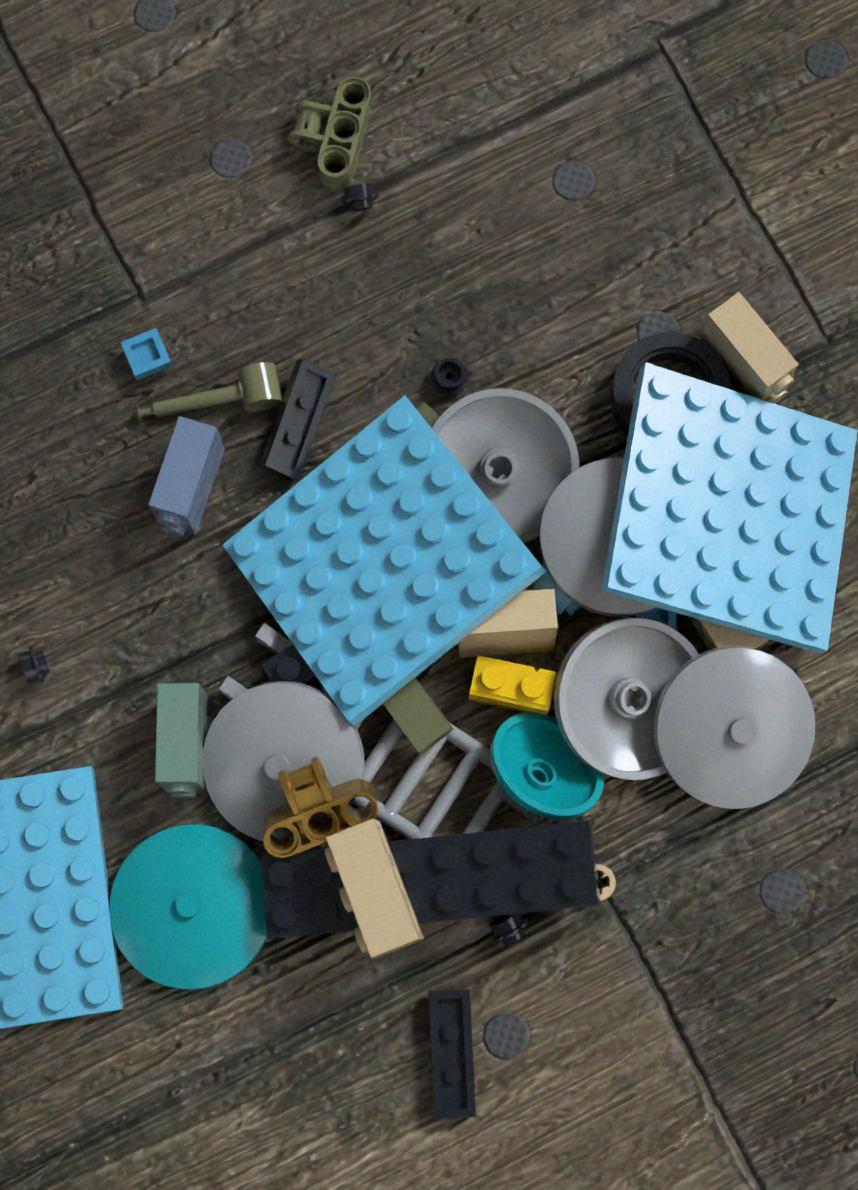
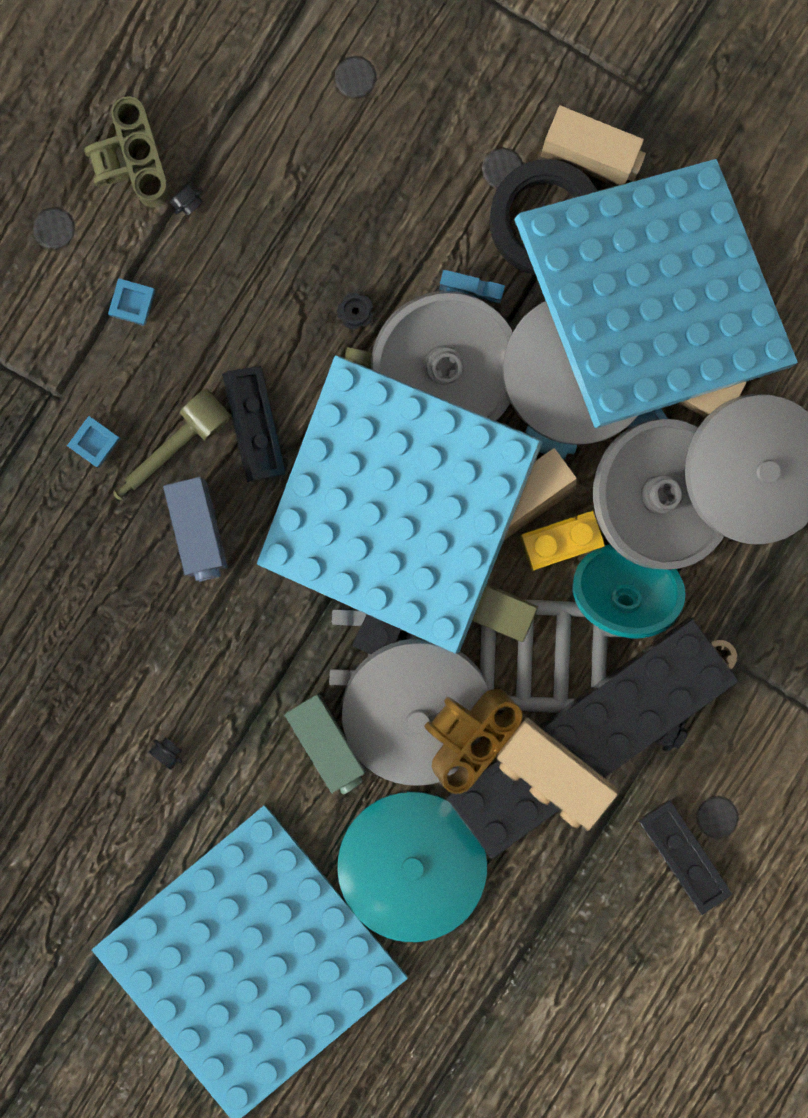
camera: 30 degrees left, 10 degrees up
(256, 255) = (131, 302): none -> dark azure plate
(578, 424) = (472, 286): none -> dark azure plate

